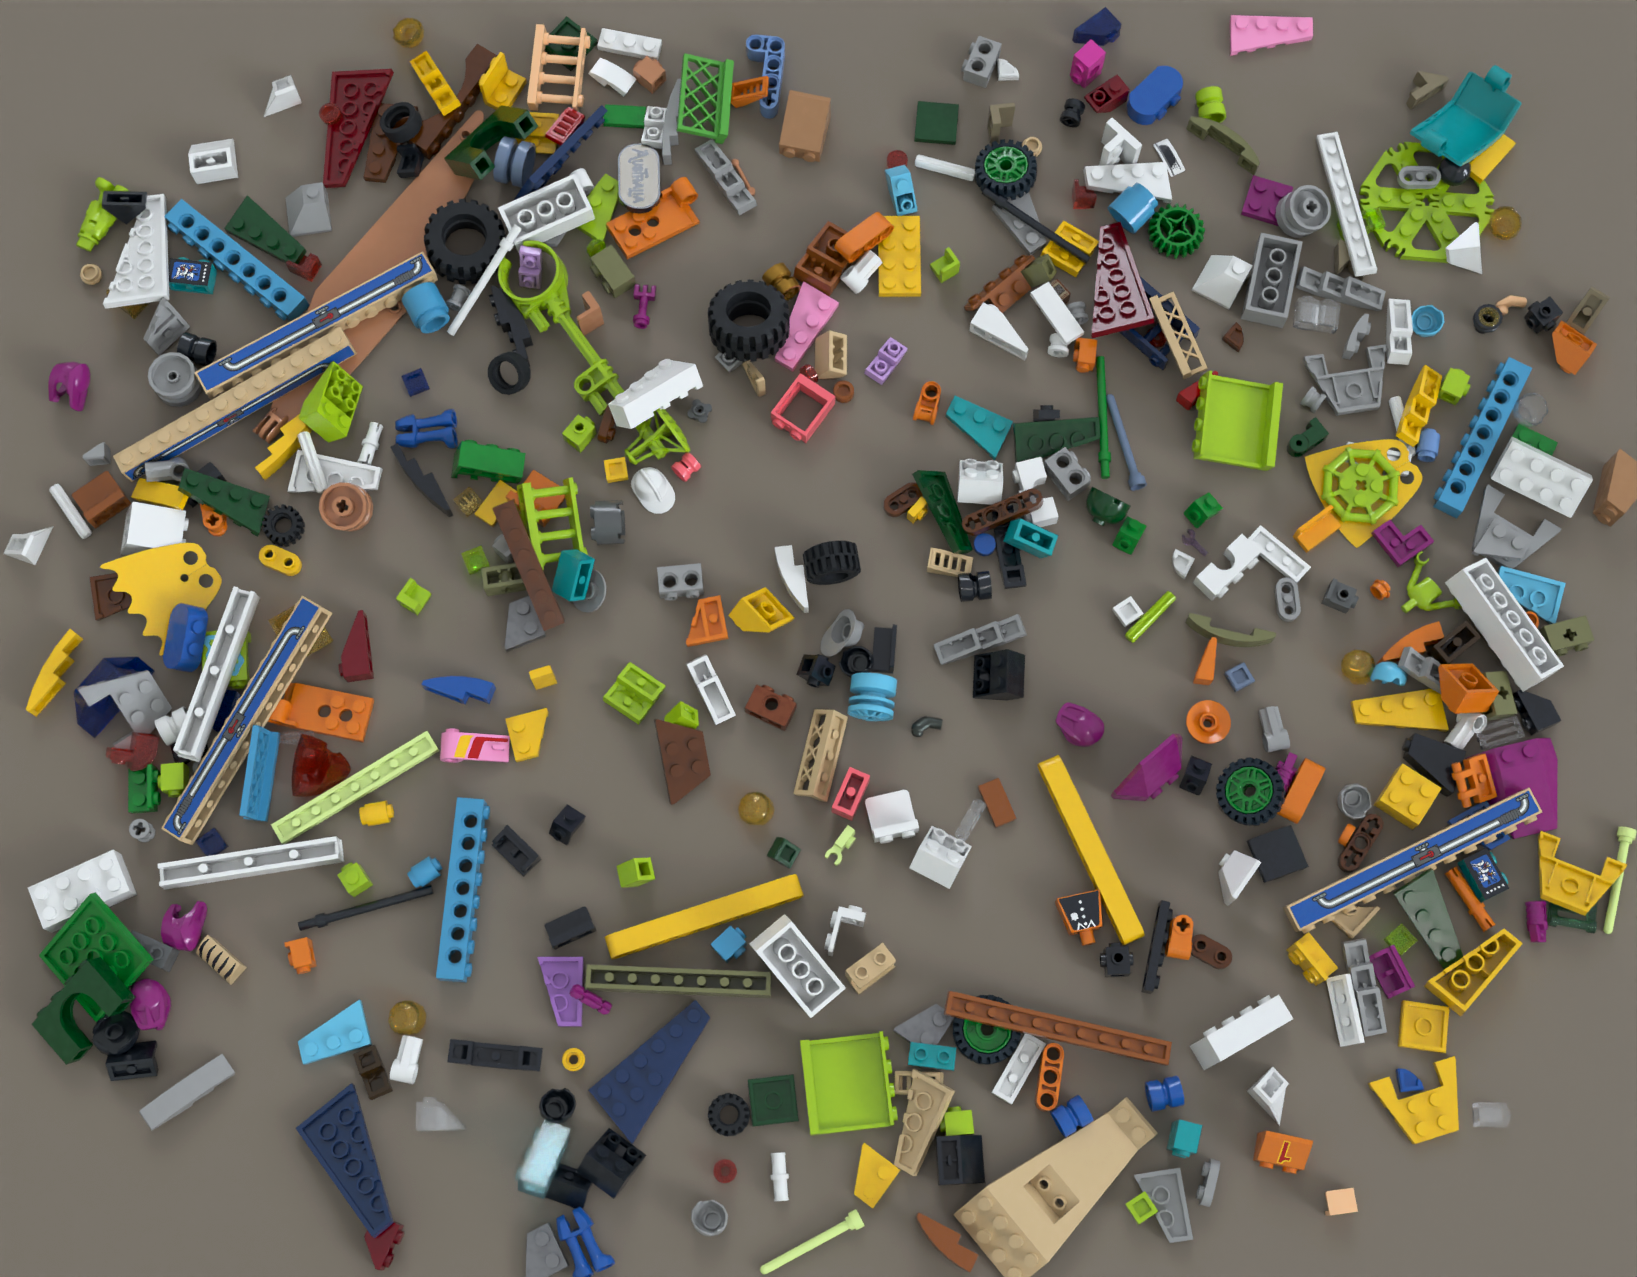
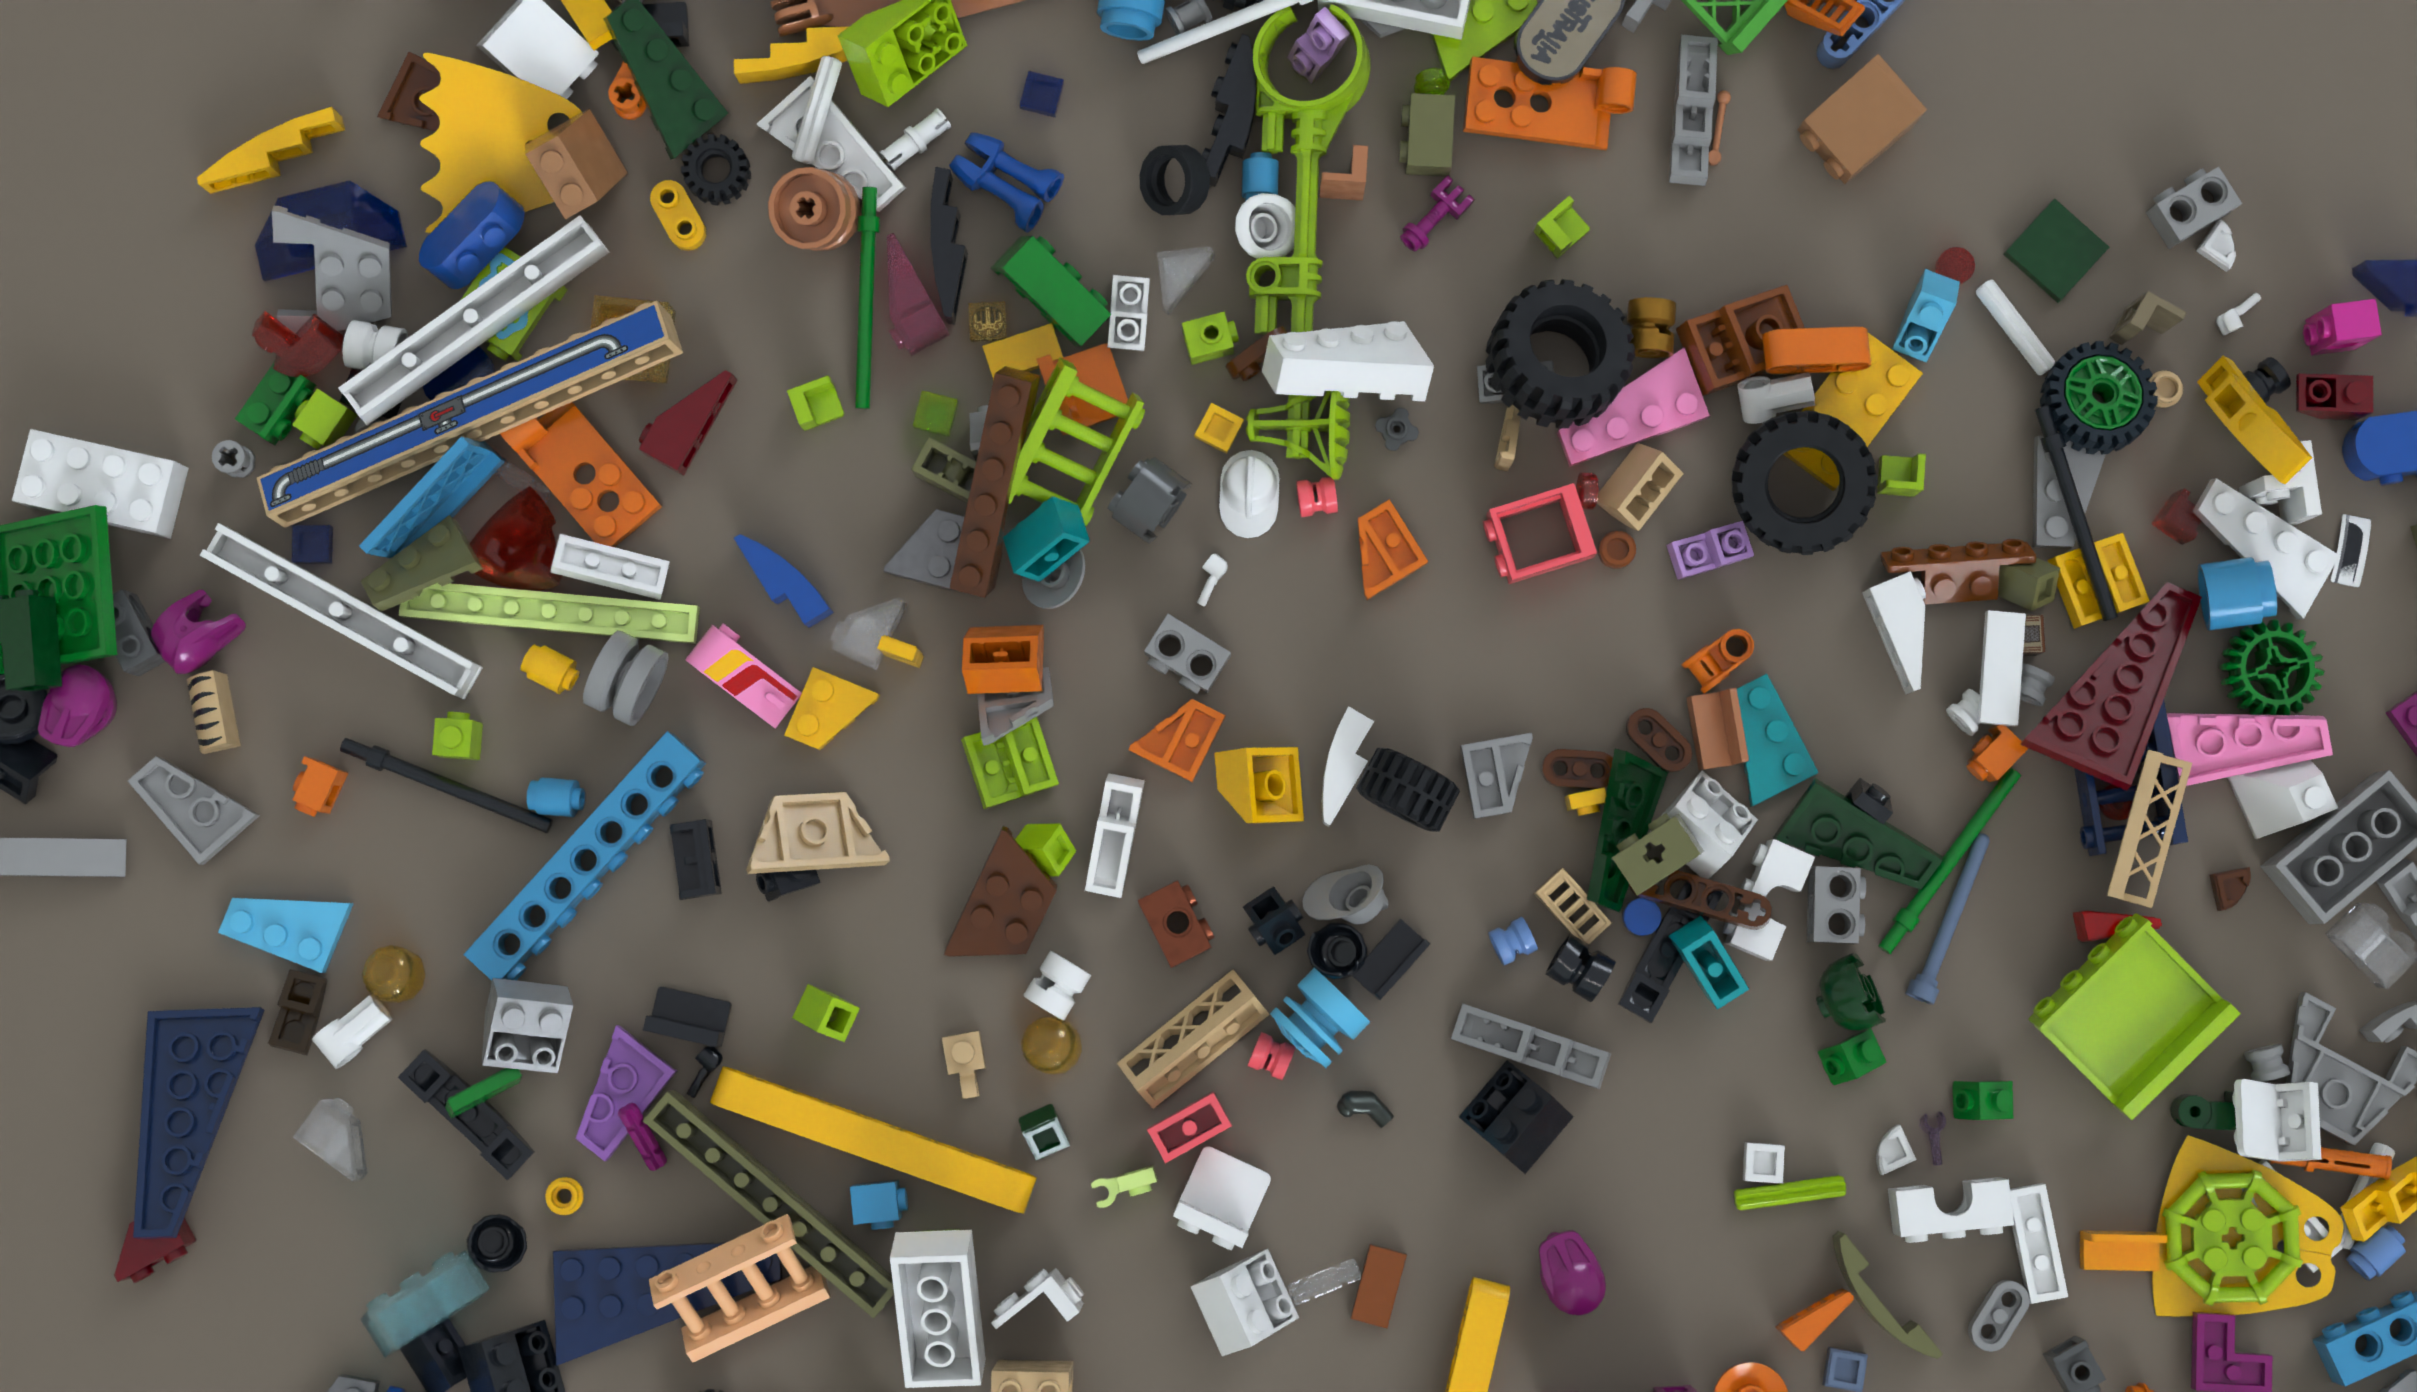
camera: 40 degrees right, 10 degrees up
(211, 569) = (575, 163): none -> medium nougat slope
(244, 1014) = (191, 809): none -> light grey wing
(278, 801) = (426, 561): none -> olive wing
(370, 743) = (609, 566): none -> white plate
(379, 499) = (868, 226): none -> green bar
(417, 787) = (625, 678): none -> light grey wheel
(429, 521) = (910, 307): none -> clear pink slope
(493, 988) = (526, 1025): none -> light grey slope
(495, 1036) = (482, 1091): none -> green tile
(518, 683) = (862, 632): none -> clear slope
(535, 451) = (1128, 313): none -> white slope
(542, 413) = (1180, 271): none -> clear slope
(549, 346) = (1259, 175): none -> dark azure brick
(566, 793) = (814, 835): none -> tan wing
(568, 362) = (1266, 226): none -> white hat
(596, 645) = (1003, 659): none -> orange slope
(596, 940) = (710, 1059): none -> black hand
(613, 662) = (1007, 711): none -> light grey wing
(663, 533) = (1216, 568): none -> white hand
(705, 270) = (1561, 228): none -> lime panel
(710, 1041) = (751, 1314): none -> light nougat fence
(718, 845) = (964, 1056): none -> tan plate
(736, 776) = (1057, 985): none -> white wheel
(737, 467) = (1386, 549): none -> orange wing
(866, 530) = (1494, 773): none -> light grey wing
(868, 732) = (1280, 1058): none -> coral wheel
(912, 269) = (1832, 525): none -> black tyre
(929, 459) = (1659, 739): none -> reddish brown plate
(934, 598) = (1513, 941): none -> medium blue wheel
(952, 435) = (1717, 729): none -> nougat panel
(977, 495) = (1645, 872): none -> olive brick
(1037, 98) = (2230, 320): none -> white hand
(1080, 128) = (2252, 421): none -> yellow slope
(1190, 268) = (2244, 742): none -> bright pink wing
(1338, 417) = (2277, 1120): none -> white bracket
(1353, 433) = (2347, 1162): none -> orange pin

